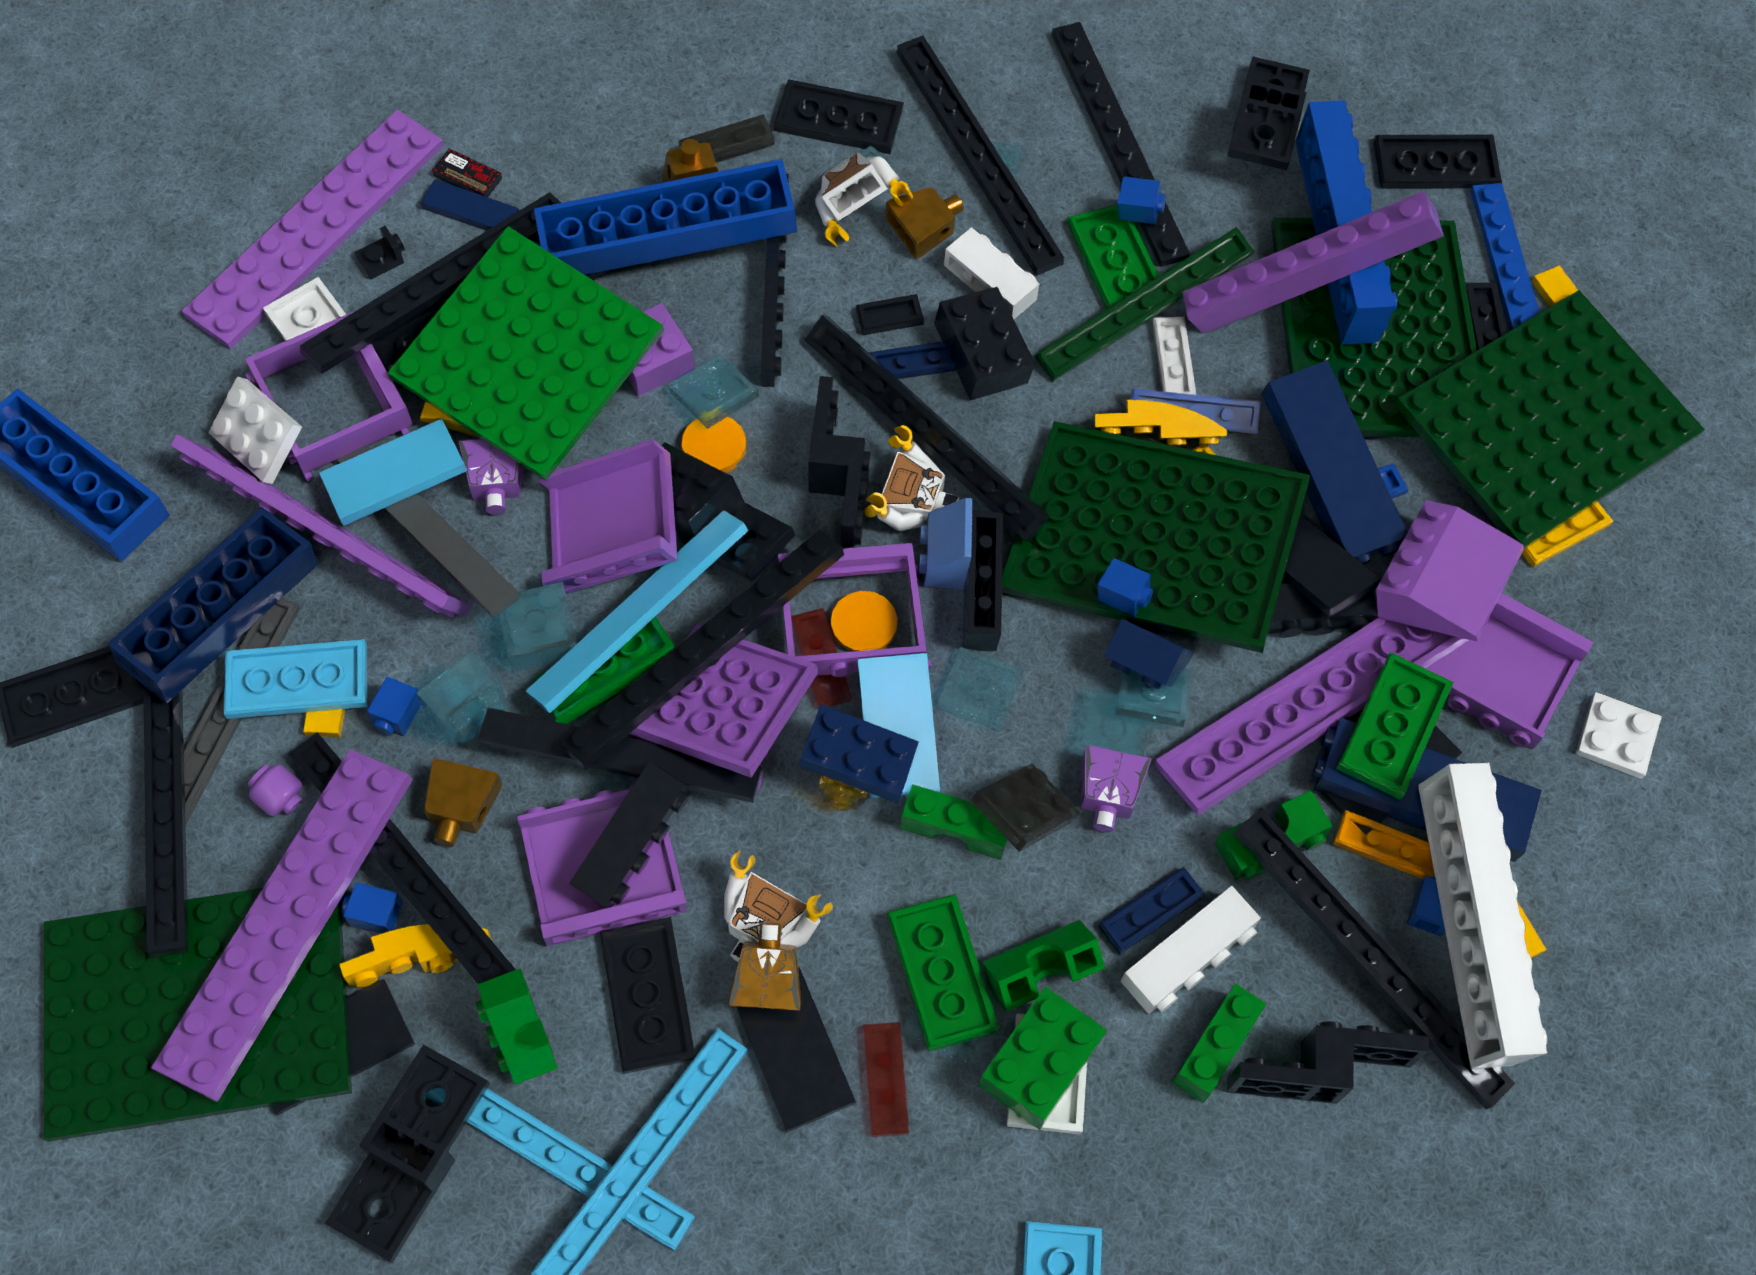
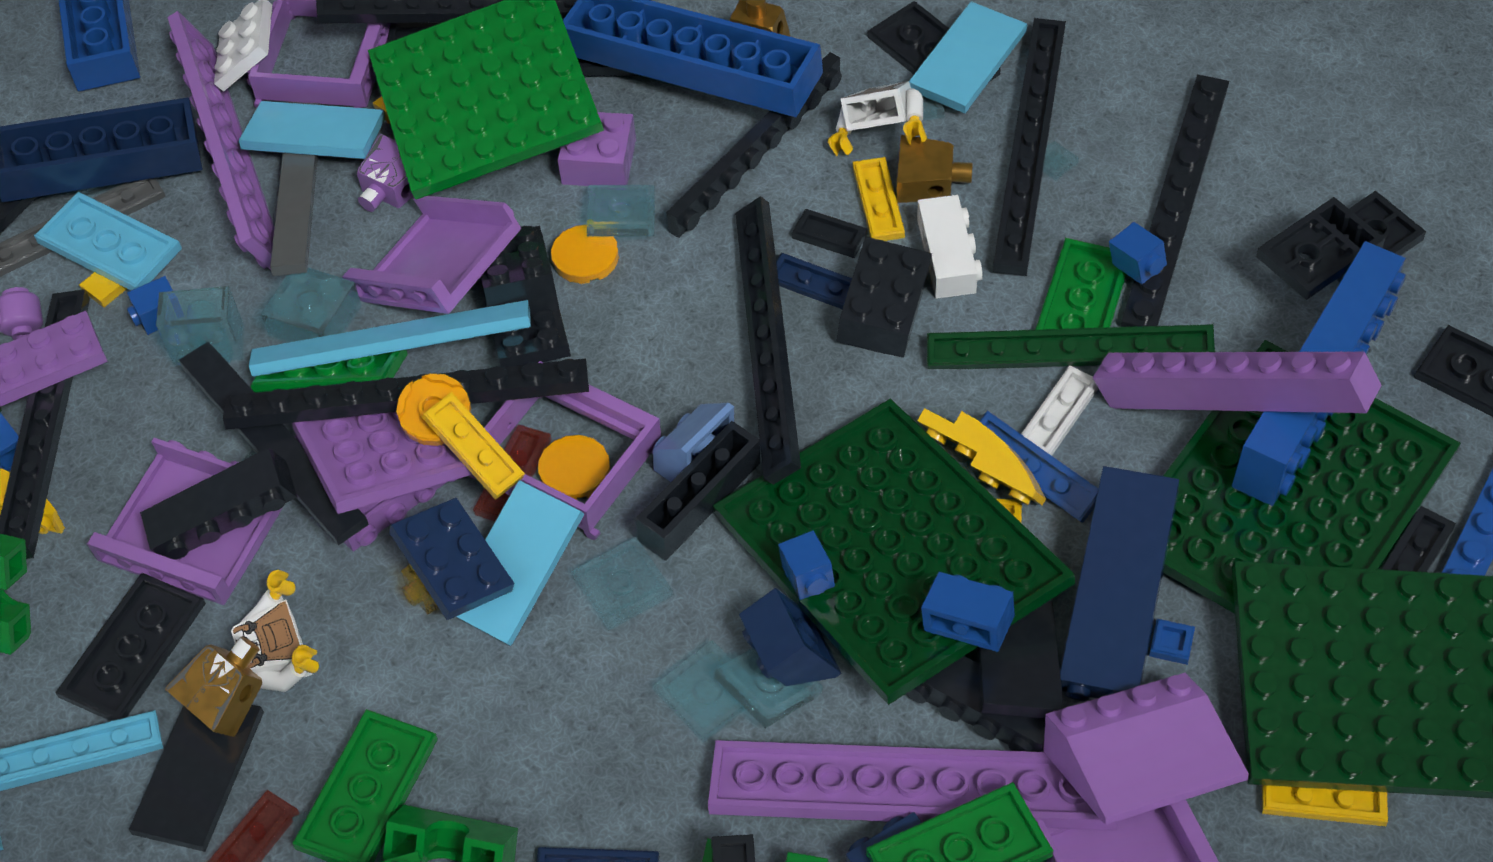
camera: 45 degrees right, 10 degrees down
(459, 798) = (134, 403): pearl gold torso -> none
(737, 138) = (823, 24): clear smoke plate -> none
(748, 645) = (420, 397): none -> light orange tile
(806, 654) = (473, 445): none -> yellow tile
(838, 464) = (658, 321): black bracket -> none
(875, 105) = (968, 57): none -> medium azure tile
(902, 265) = (878, 199): none -> yellow tile
(911, 487) = (709, 377): torso -> none
(938, 813) = (494, 674): green arch -> none
(1025, 806) = (554, 697): clear smoke plate -> none
(1110, 784) = (656, 735): medium lavender torso -> none
(1272, 548) = (968, 611): none -> blue brick

